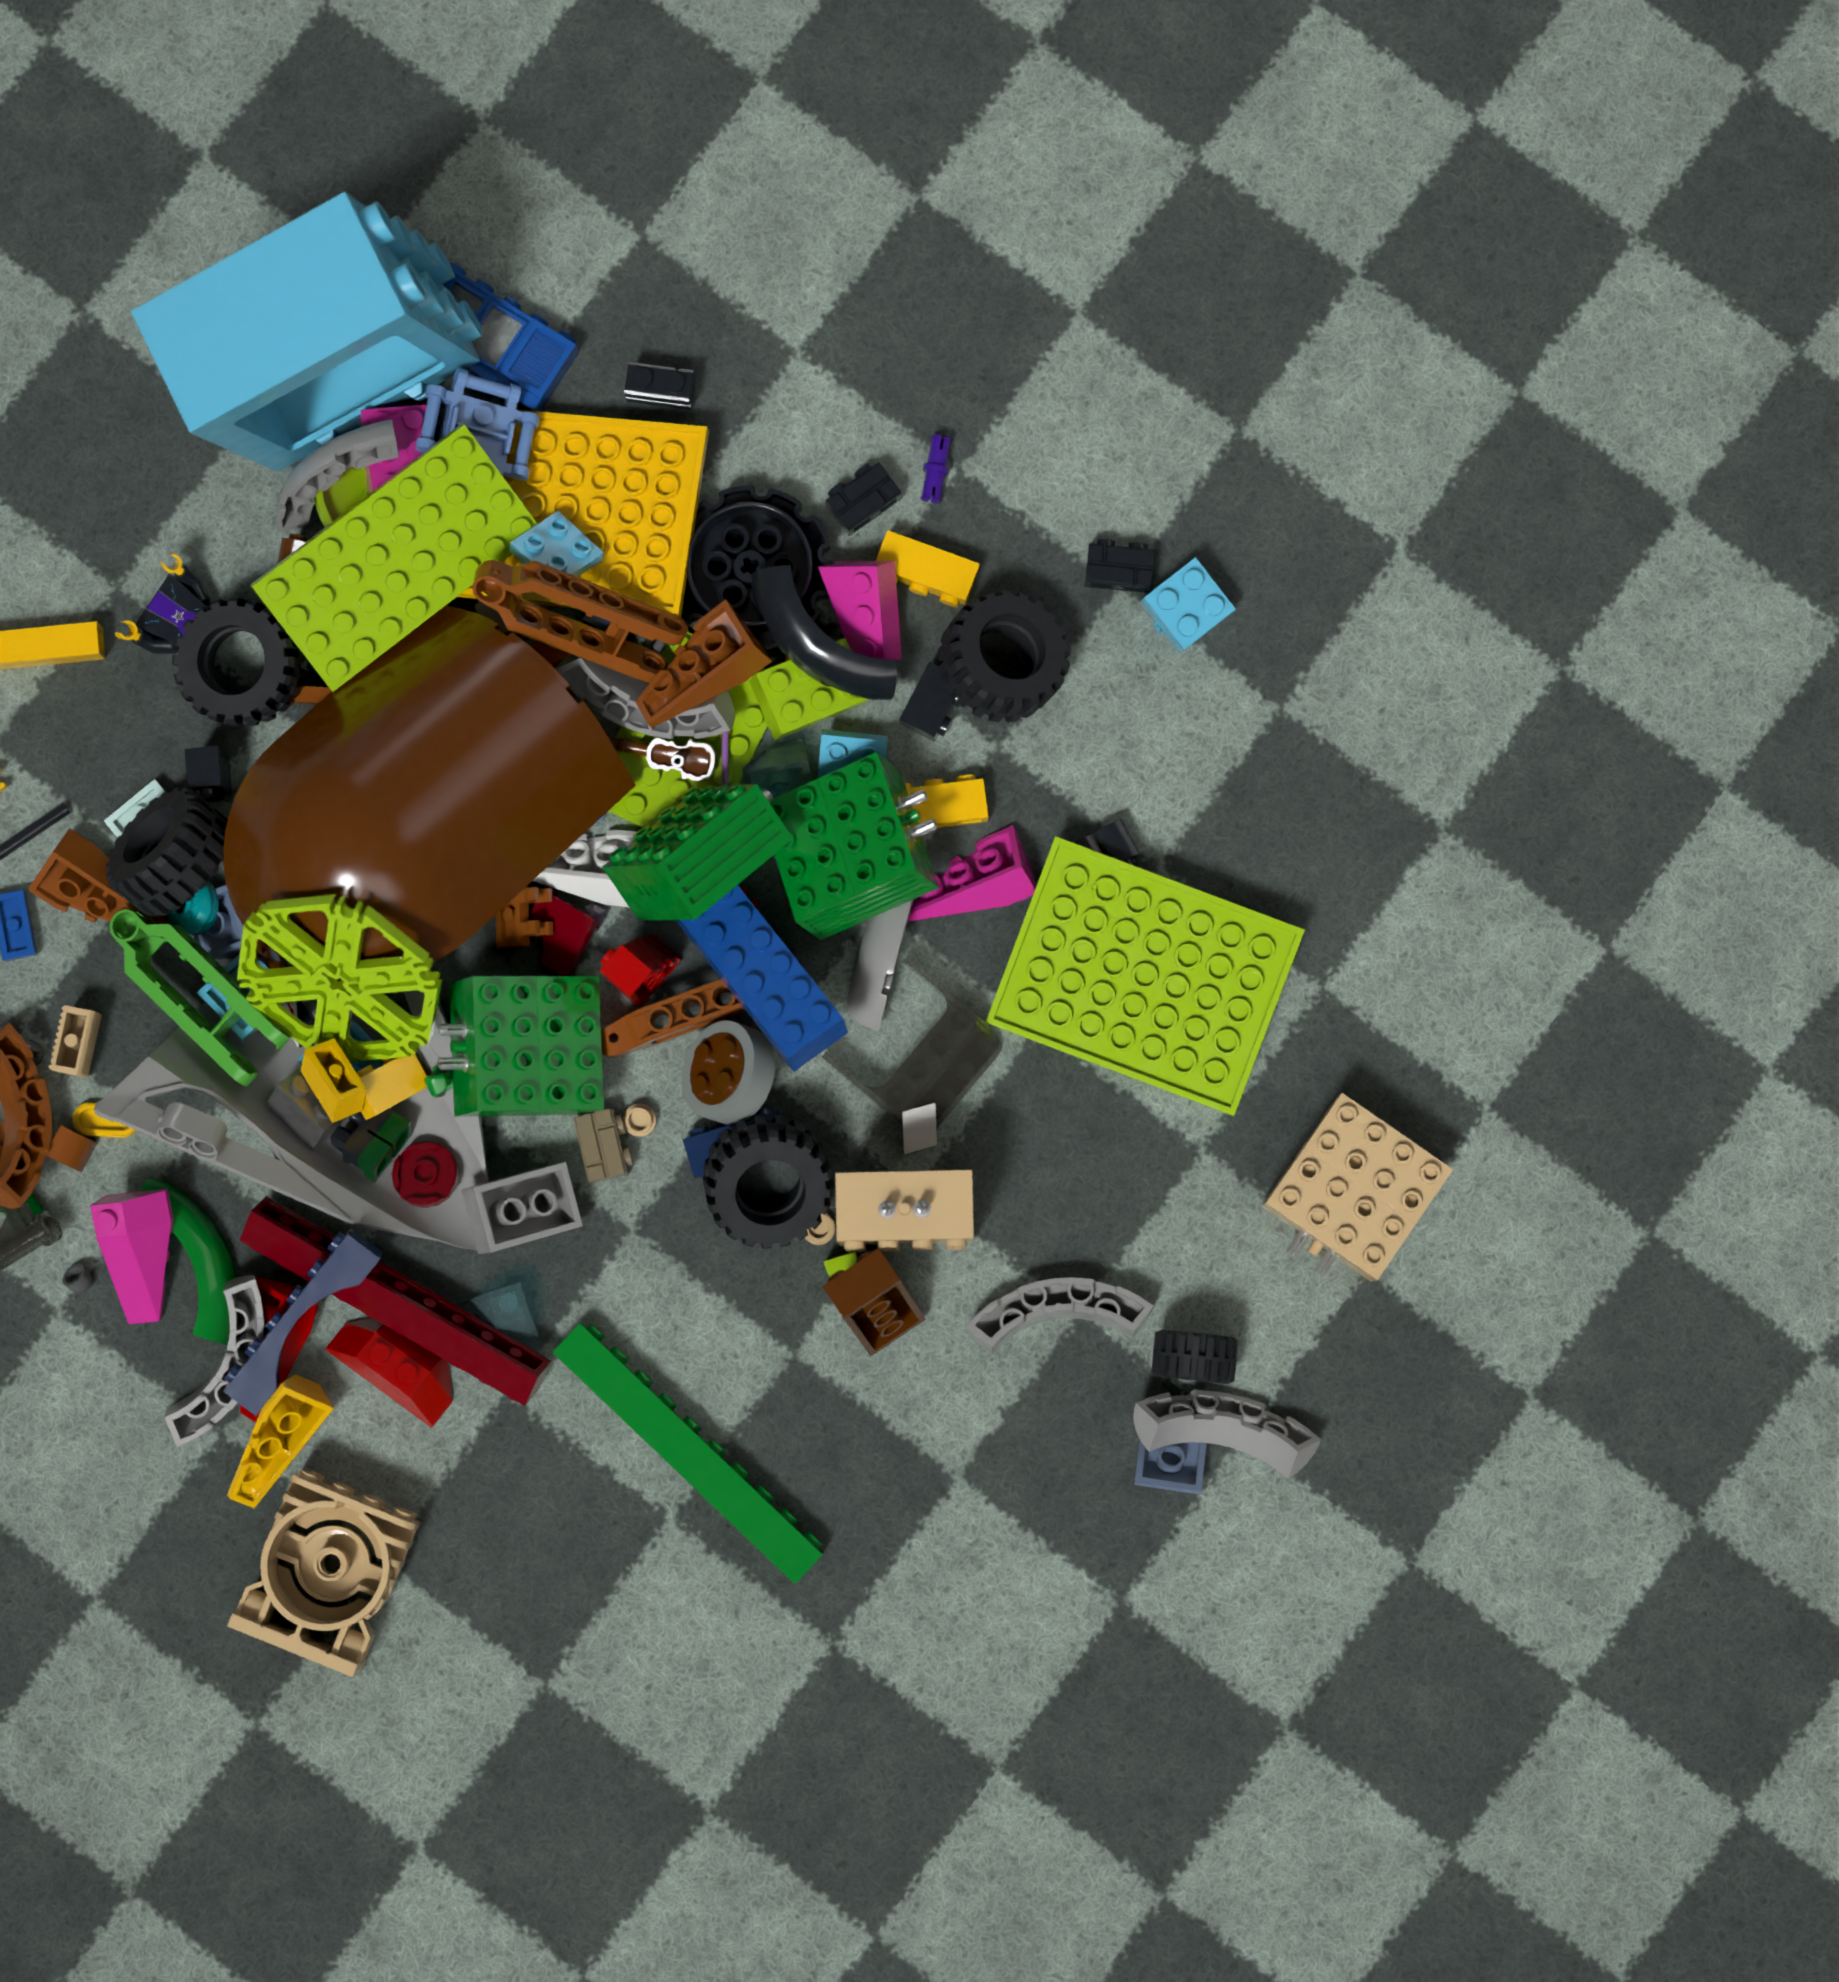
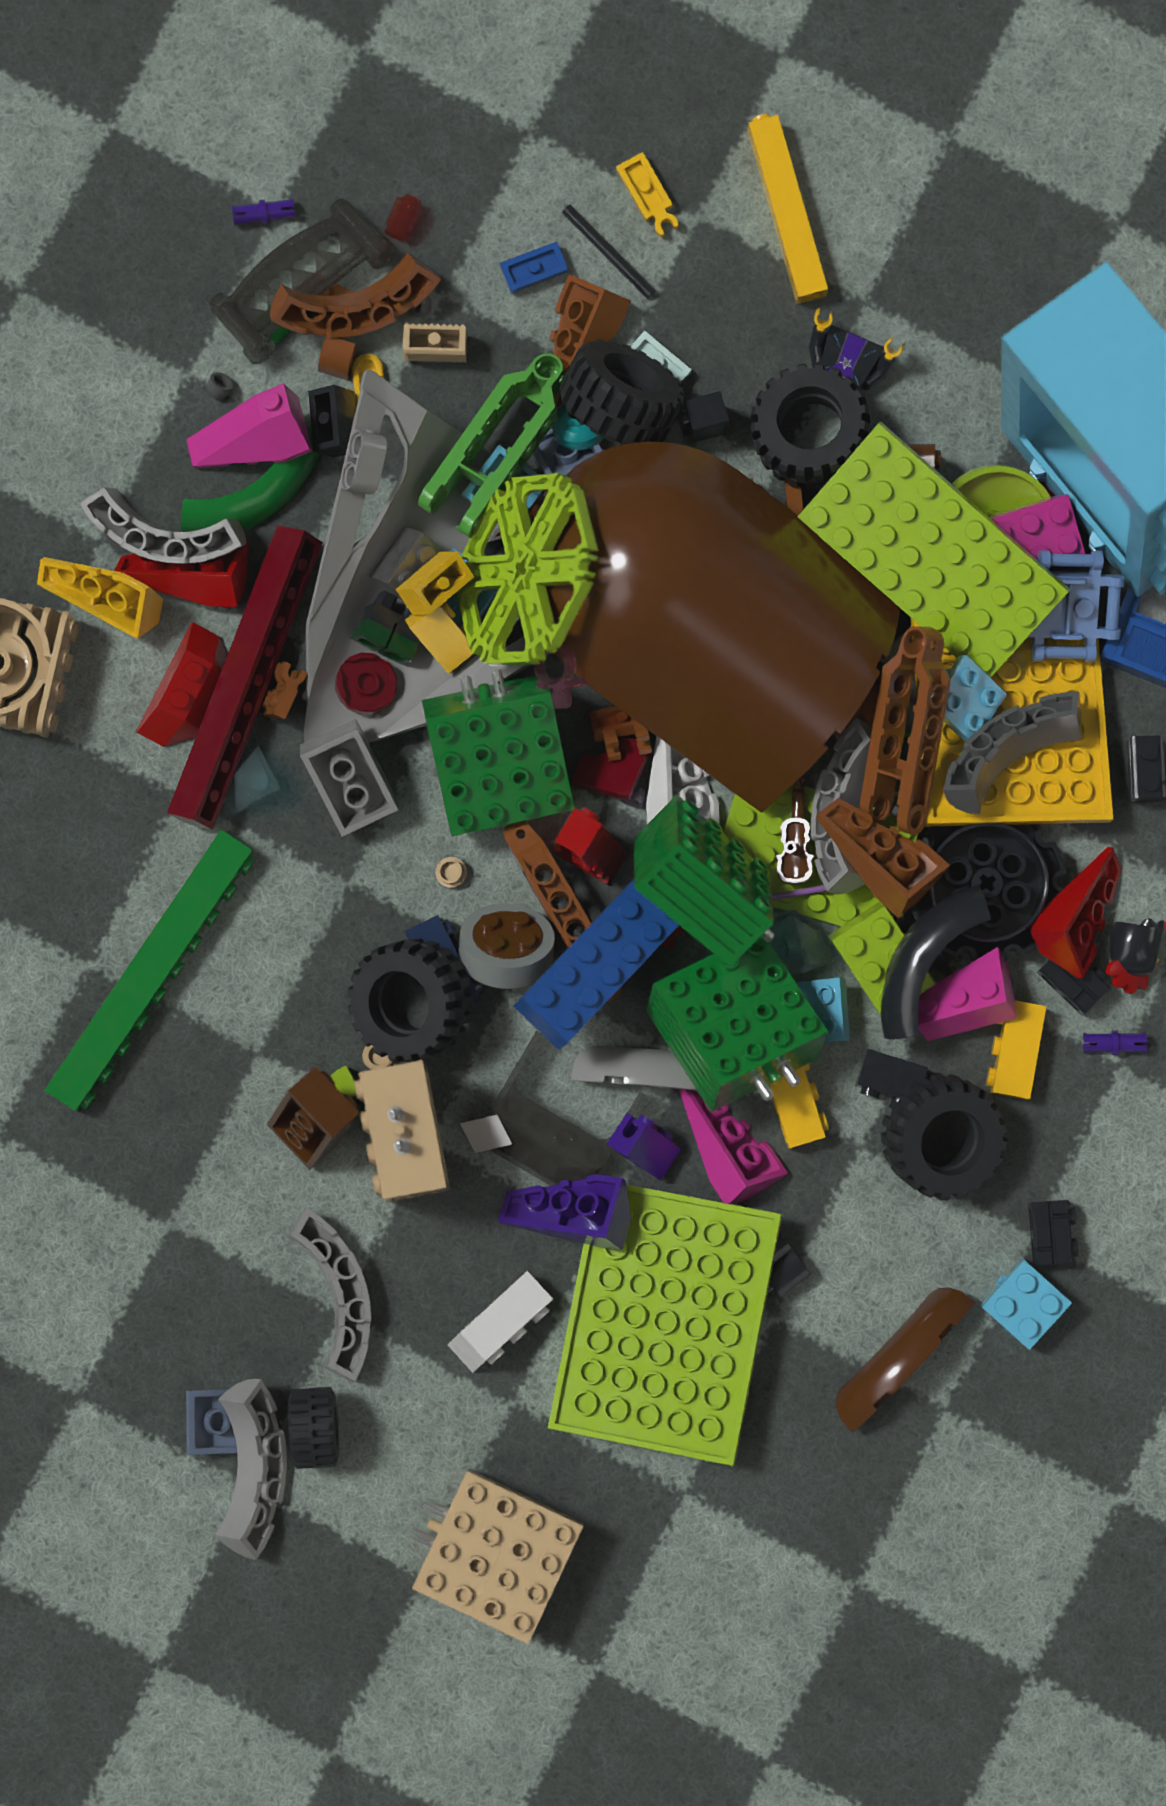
camera: 75 degrees right, 0 degrees up
(138, 1162) = (331, 419): none -> black brick
(323, 469) = (1010, 471): light grey brick -> none
(345, 1267) = (264, 625): dark blue arch -> none
(422, 1264) = (281, 696): none -> dark orange plate
(439, 1082) = (450, 680): green piece -> none
(478, 965) = (561, 687): none -> clear pink piece
(602, 1145) = (420, 842): dark tan brick -> none
(605, 518) = (1007, 739): none -> dark grey brick
(797, 482) = (1074, 916): none -> red wedge
(848, 432) = (1134, 953): none -> black piece
(959, 965) = (643, 1145): none -> dark purple brick
(1016, 1042) = (581, 1210): none -> dark purple wedge
(1118, 1145) = (501, 1322): none -> white wedge
(1220, 740) = (901, 1355): none -> reddish brown brick

